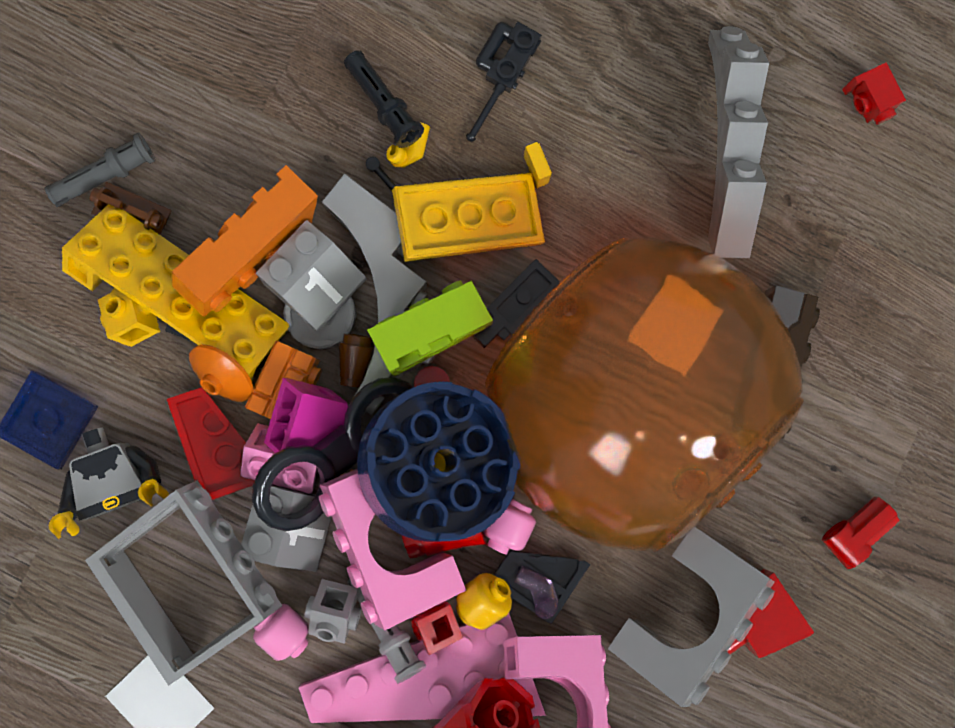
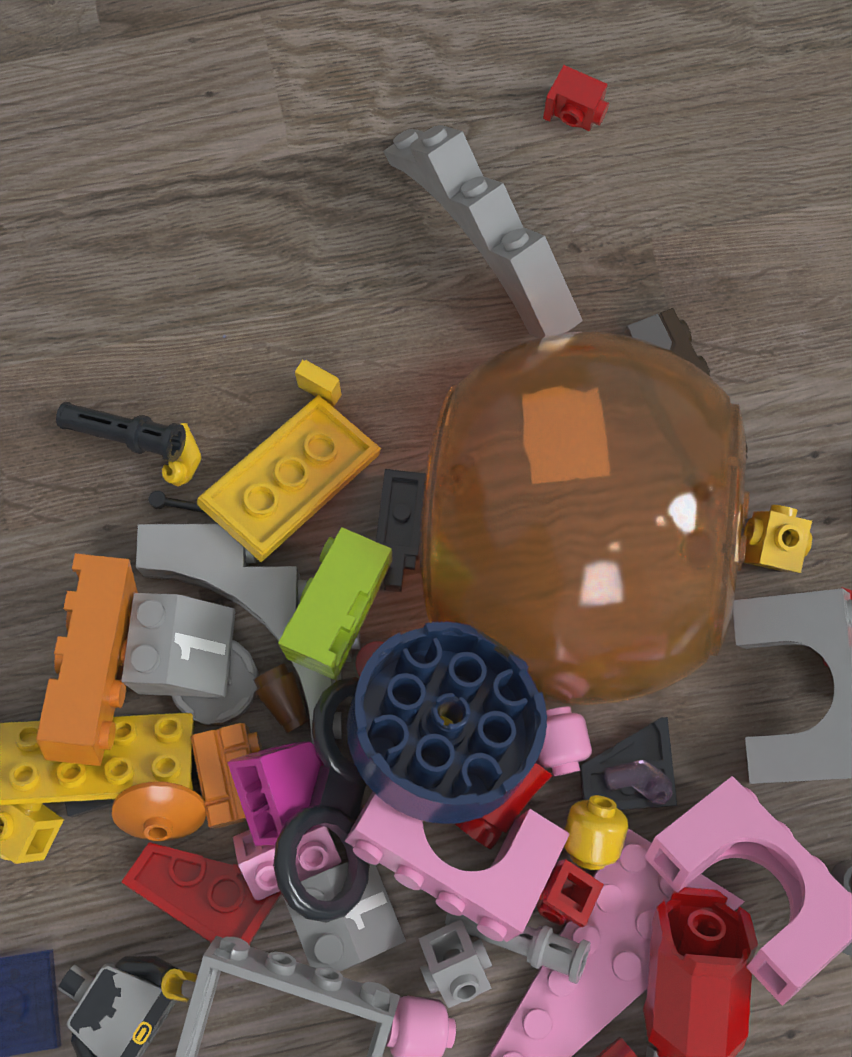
camera: 30 degrees left, 10 degrees down
(507, 70) = (222, 320): black piece -> none
(758, 507) = (777, 539): none -> yellow brick

